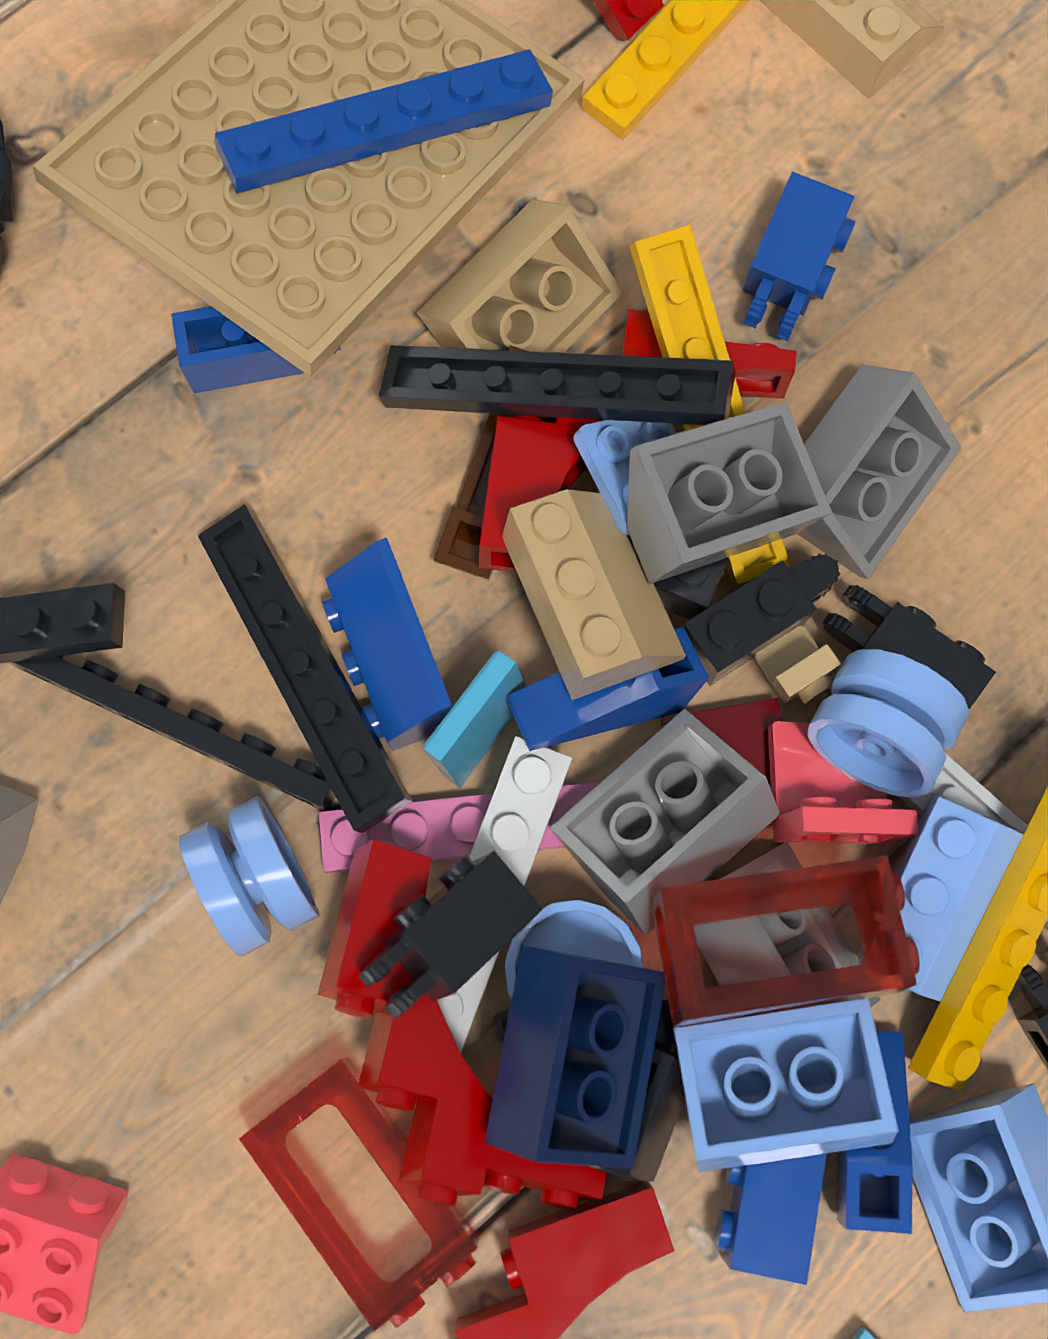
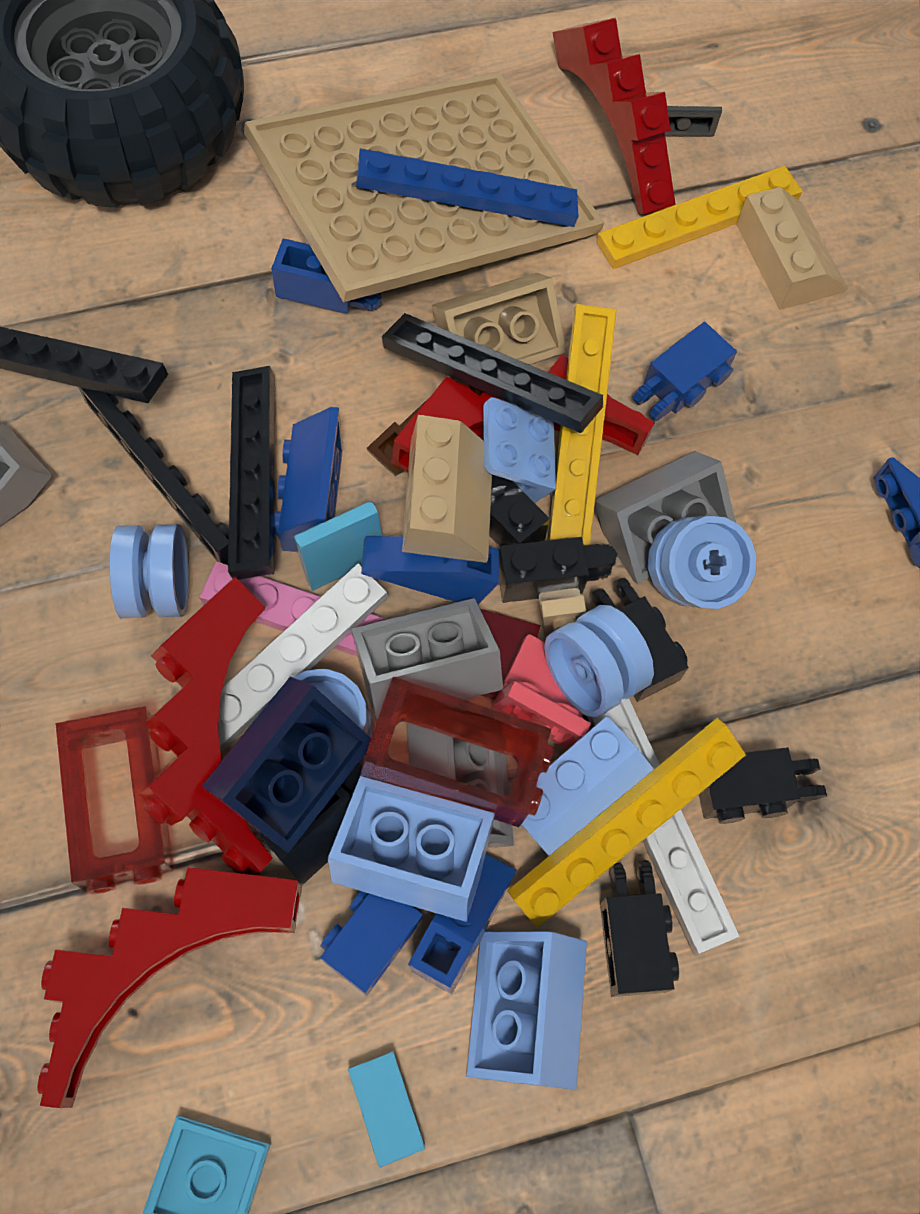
camera: 20 degrees right, 10 degrees down
(454, 931) = (252, 649): black hinge -> none
(720, 491) = (558, 470): light grey slope -> none
(949, 521) = (702, 562): none -> light blue wheel

